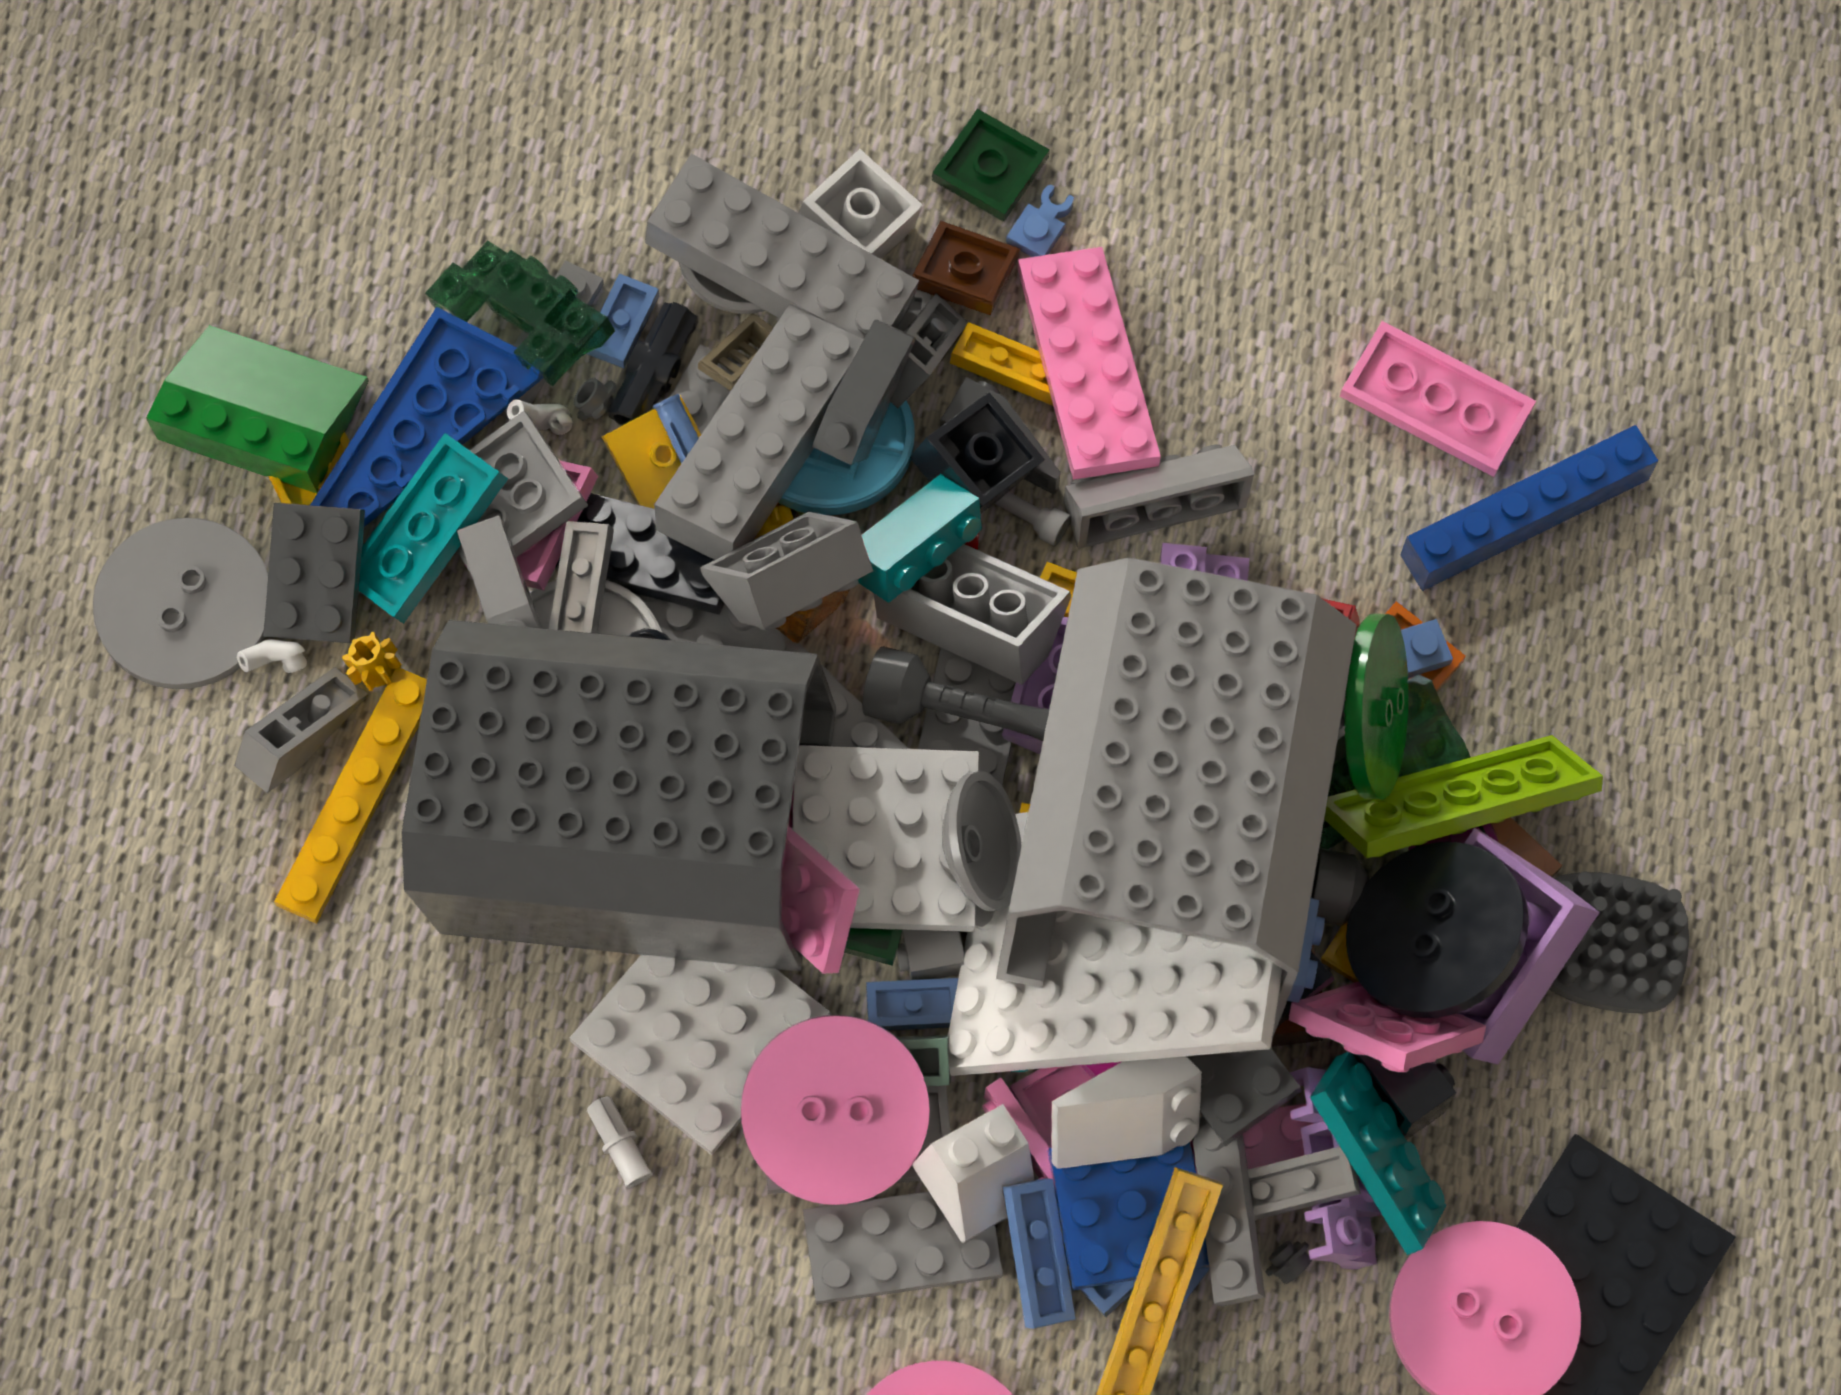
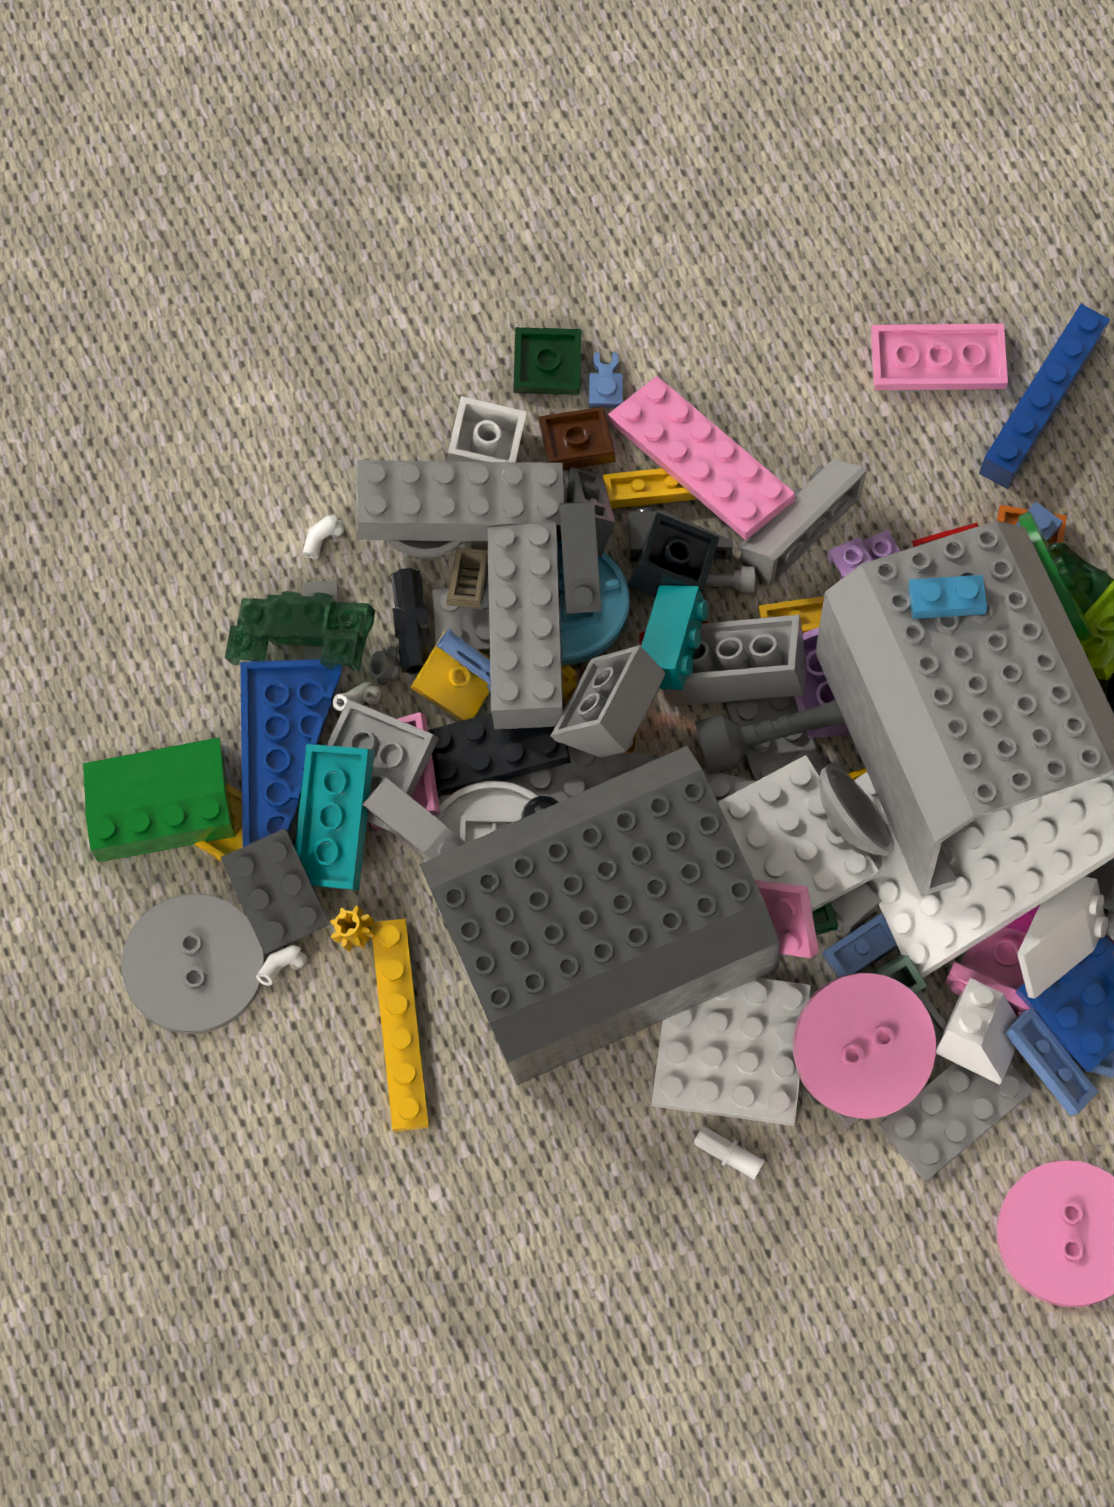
camera: 30 degrees left, 0 degrees up
(297, 729) = (332, 1003): light grey slope -> none
(581, 577) = (465, 792): light grey plate -> none
(616, 217) = (318, 532): none -> white arm
(628, 312) = (368, 587): medium blue plate -> none
(1195, 645) = (947, 596): none -> dark azure plate

